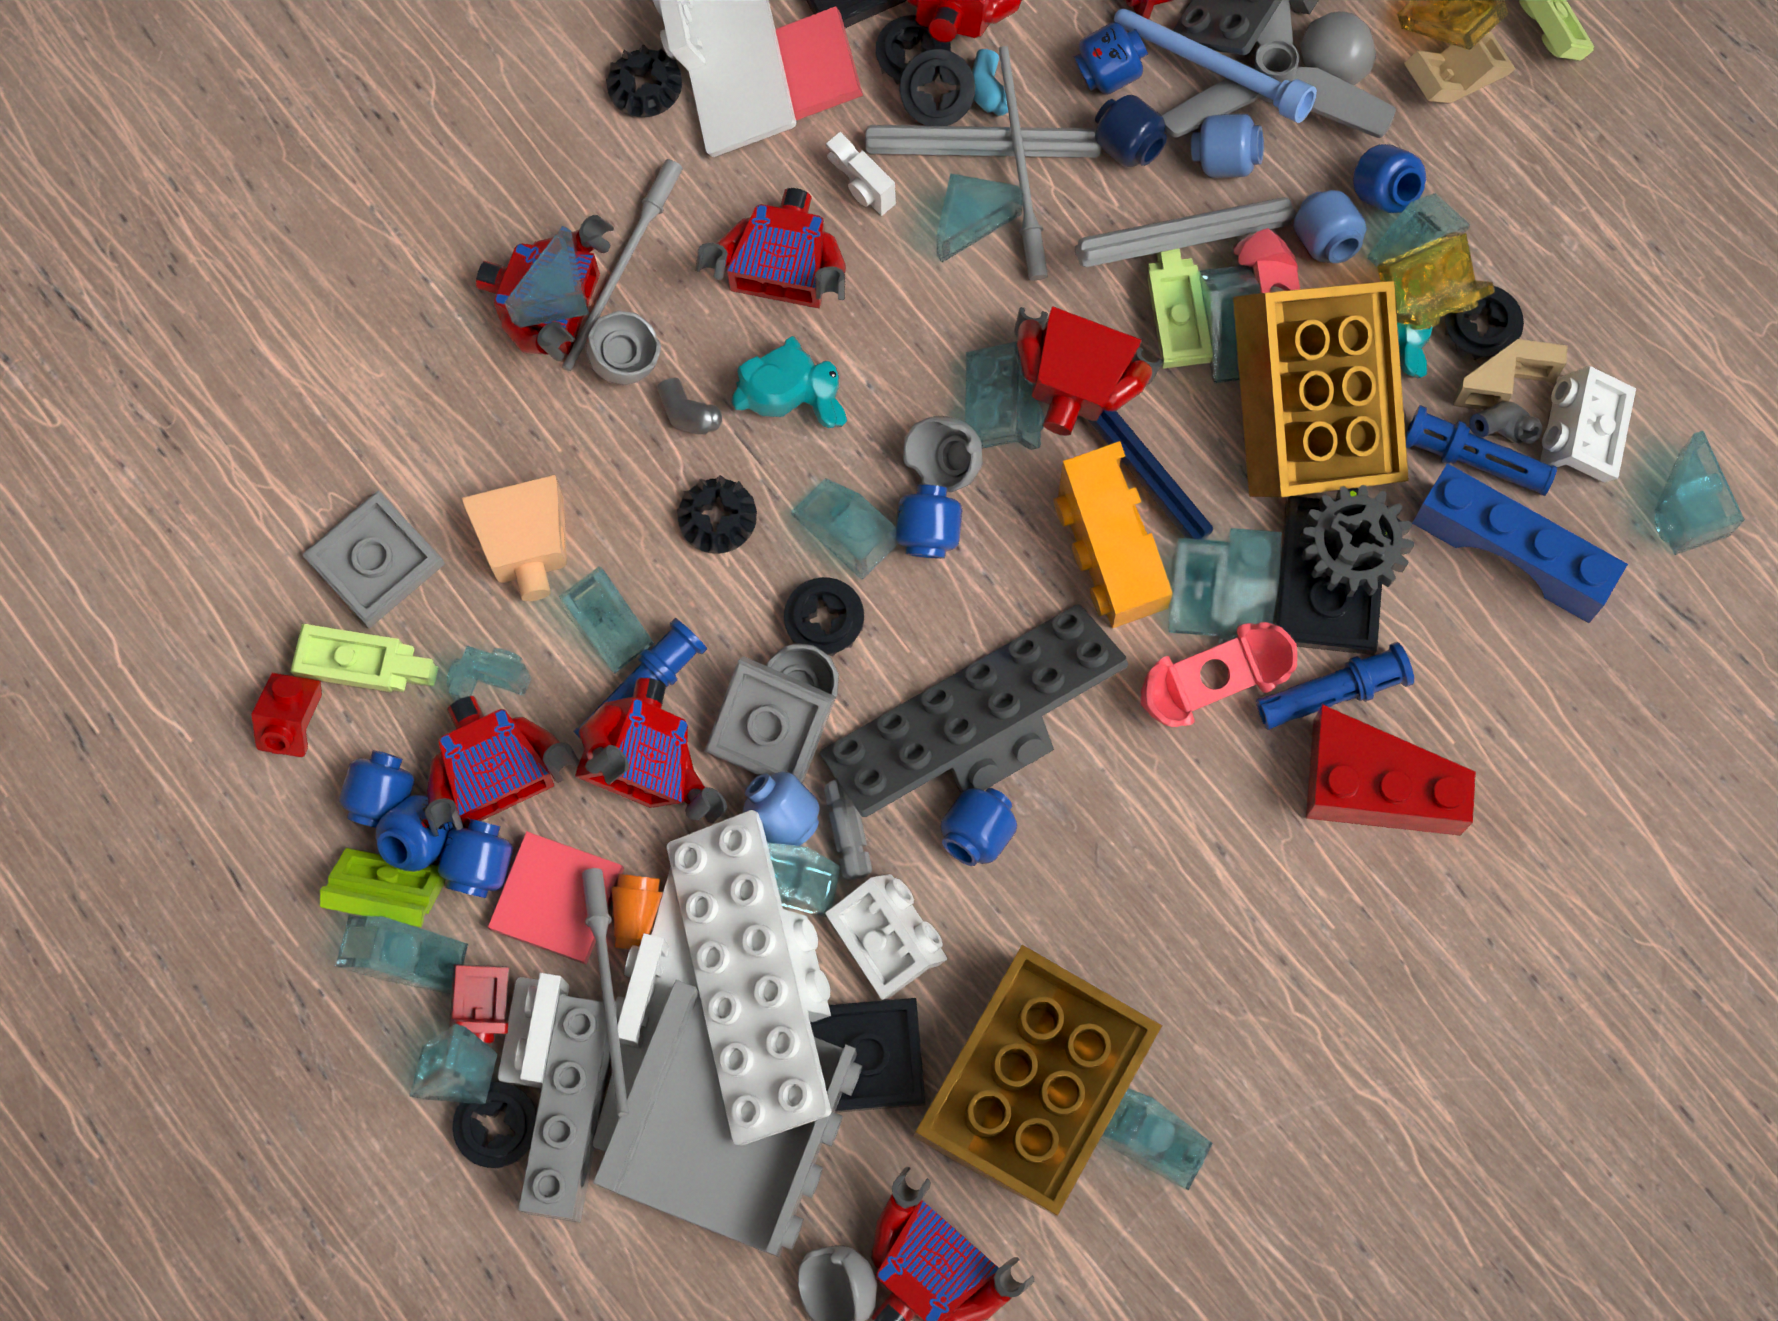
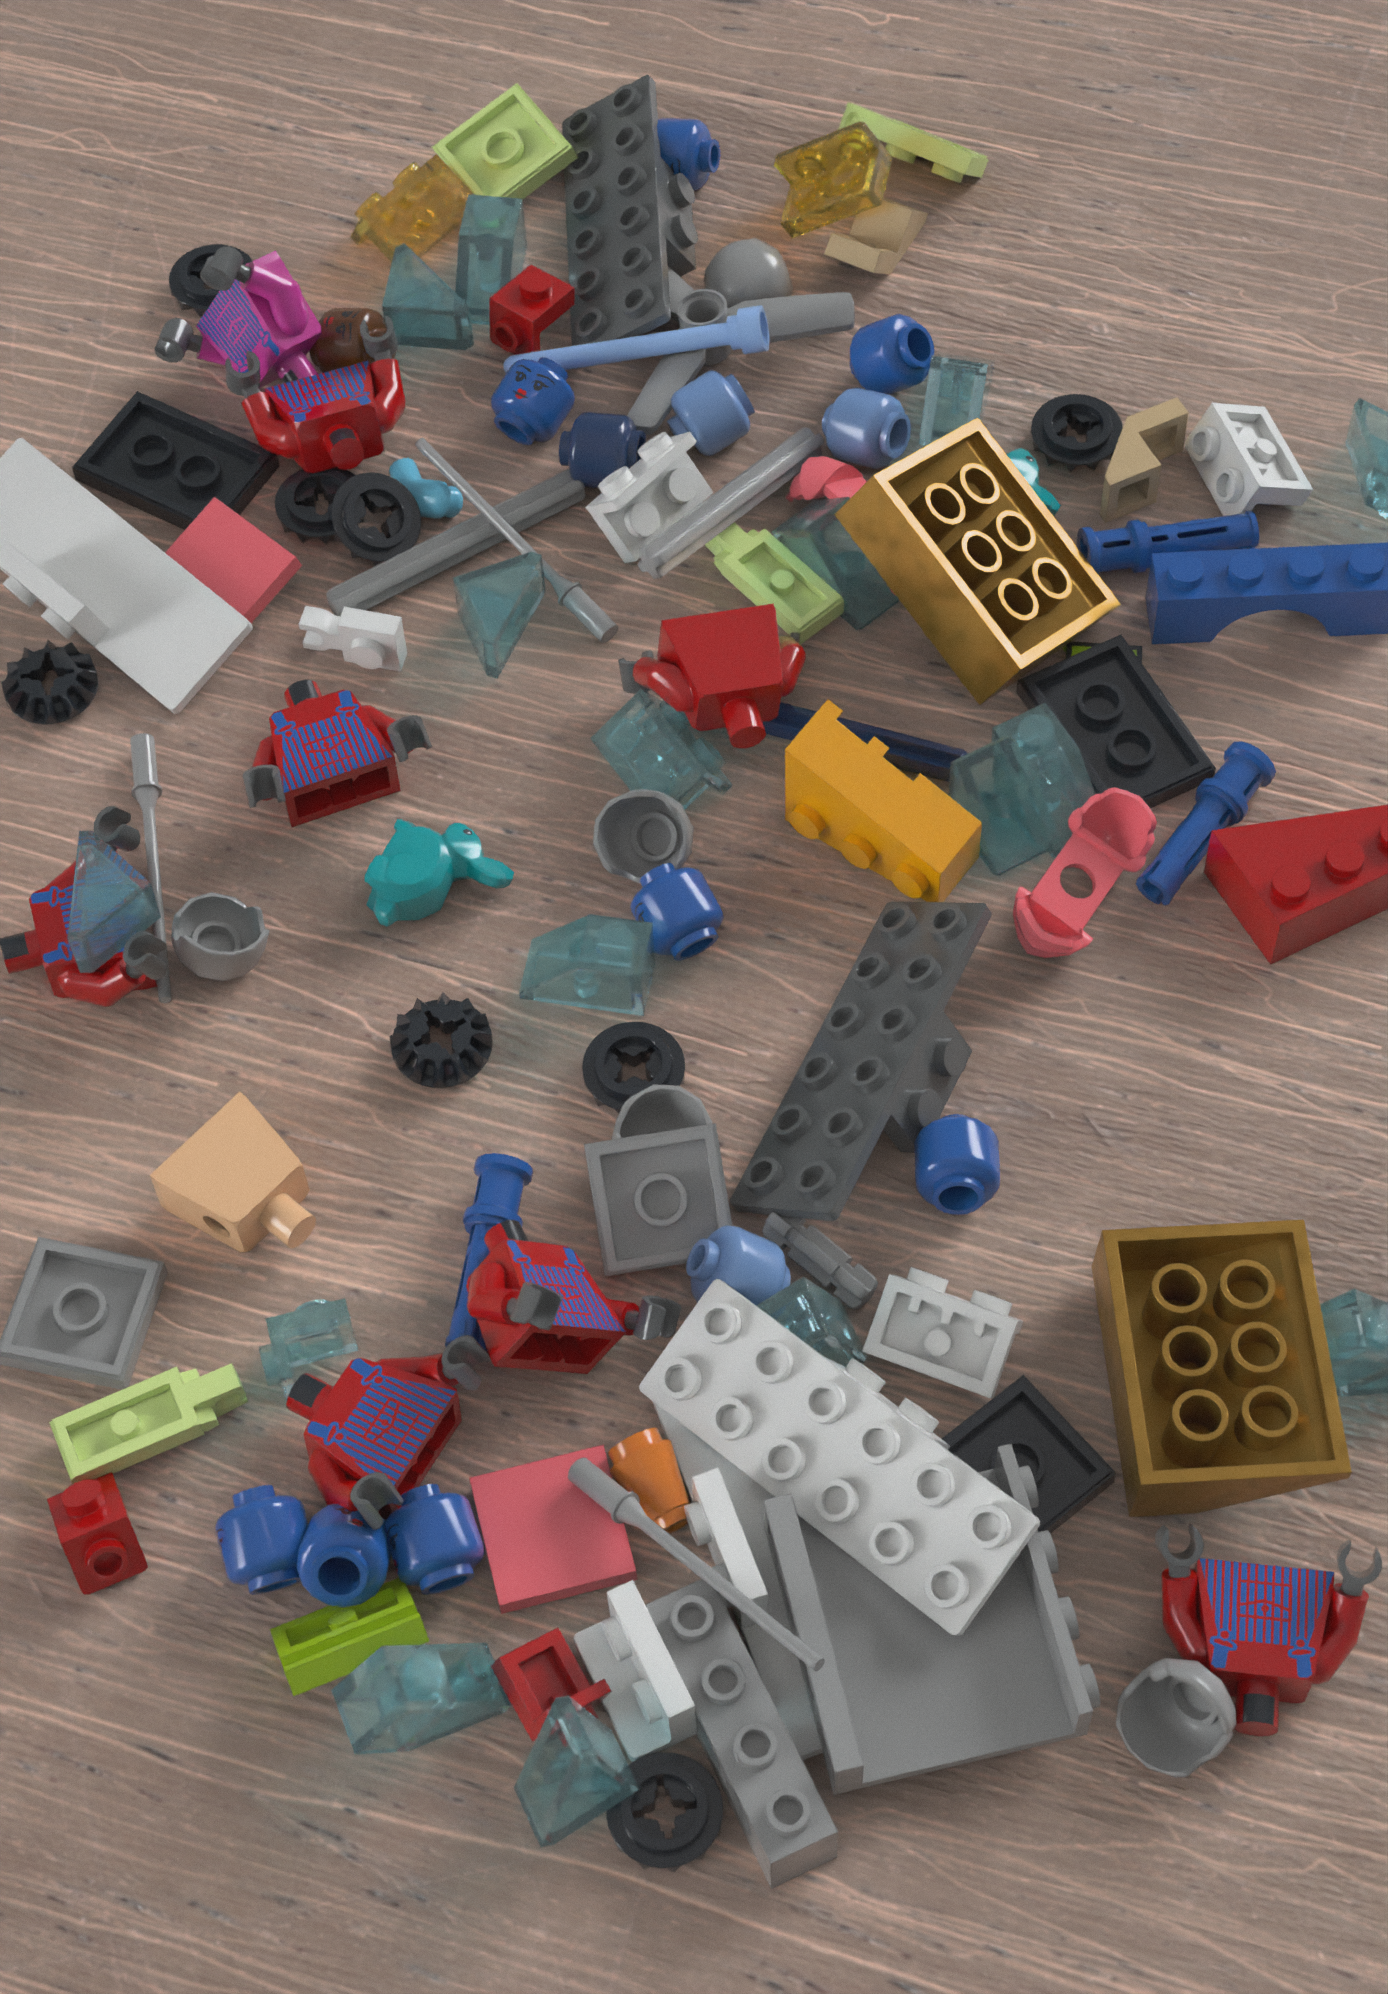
camera: 35 degrees left, 15 degrees down
(605, 619) = (398, 1208): clear light blue slope -> none
(685, 413) = (333, 963): flat silver arm -> none
(1136, 188) = (650, 495): none -> white bracket
(1373, 551) = (1121, 672): dark grey gear -> none
(1434, 281) = (1012, 406): clear yellow bracket -> none
(1508, 420) = (1173, 499): flat silver arm -> none

